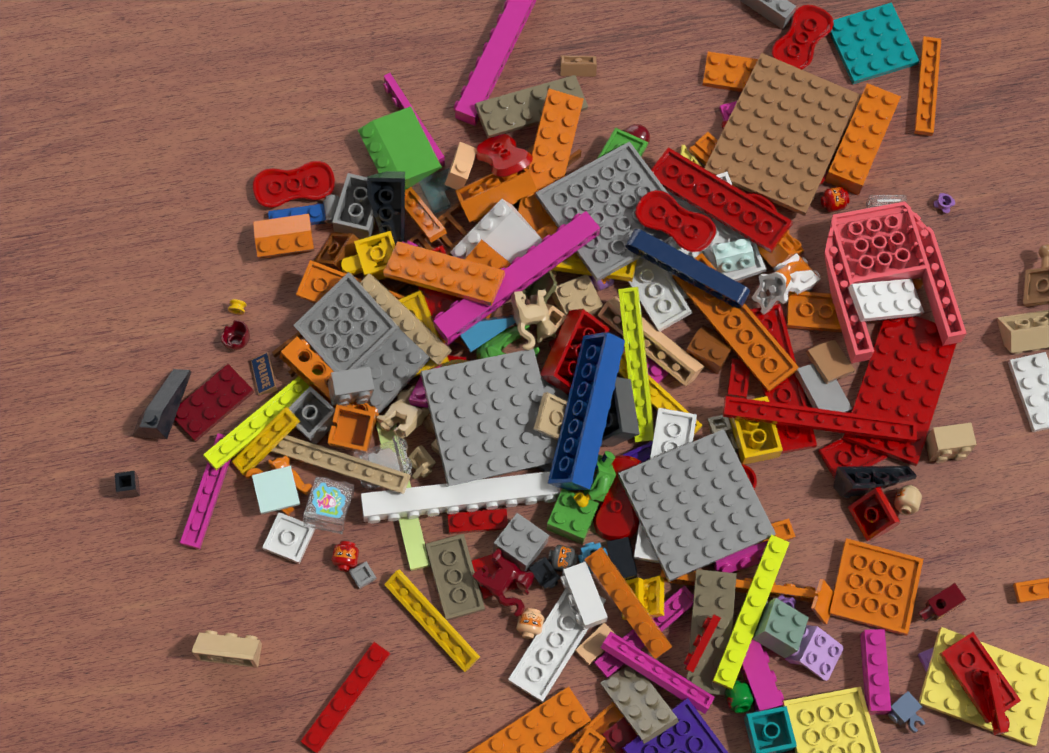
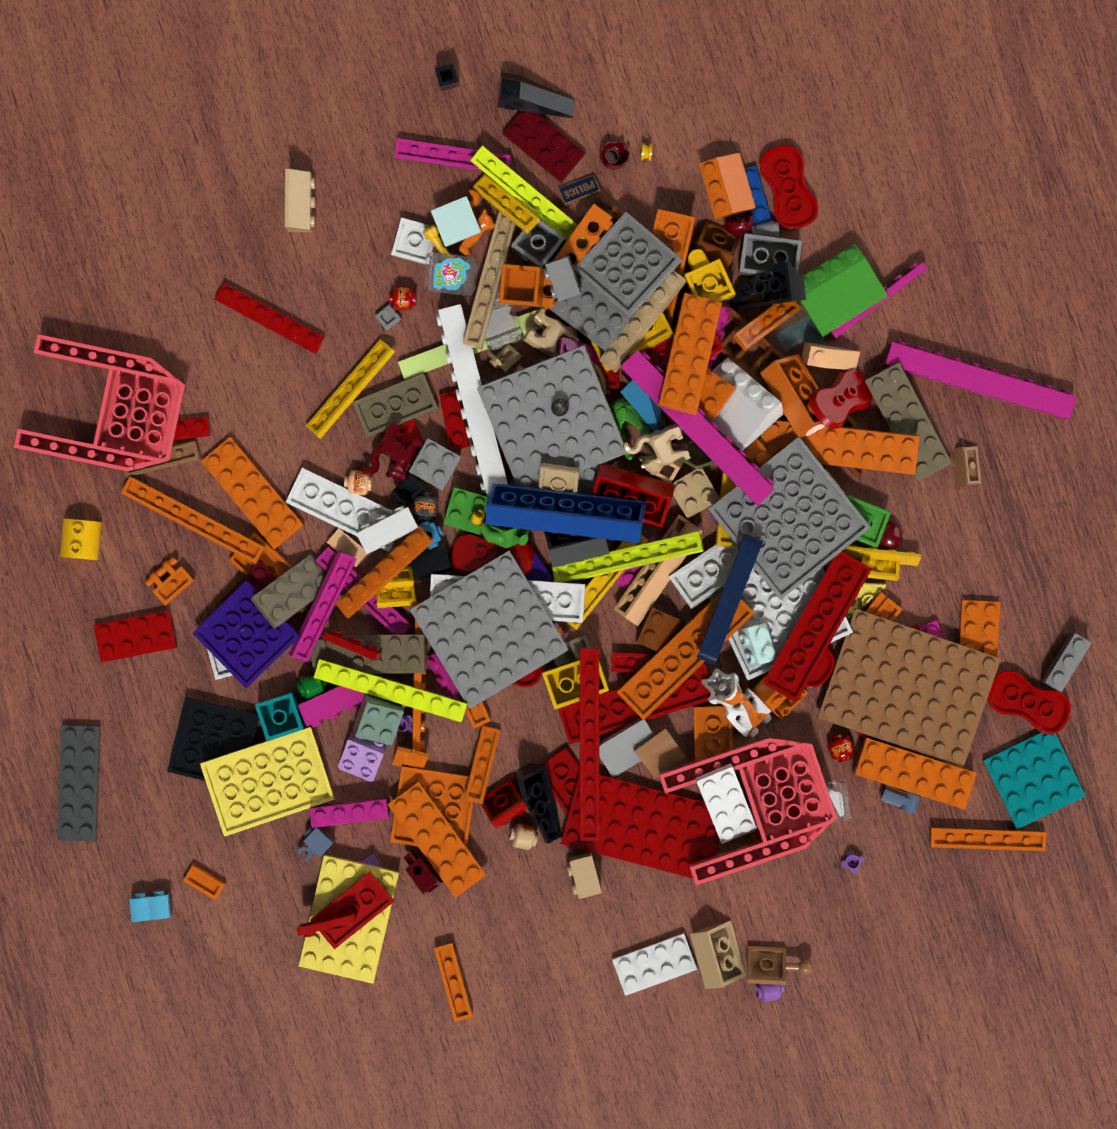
camera: 90 degrees right, 20 degrees up
(283, 516) = (432, 233): none -> yellow piece
(322, 229) = (740, 224): none -> dark red hair
(482, 408) = (565, 404): none -> clear smoke bush
(660, 139) = (884, 563): none -> yellow bracket
(662, 212) = (772, 596): red plate -> none
(833, 531) = (482, 764): none -> orange tile
(887, 150) = (903, 799): none -> sand blue piece
(907, 584) = (437, 839): none -> orange plate

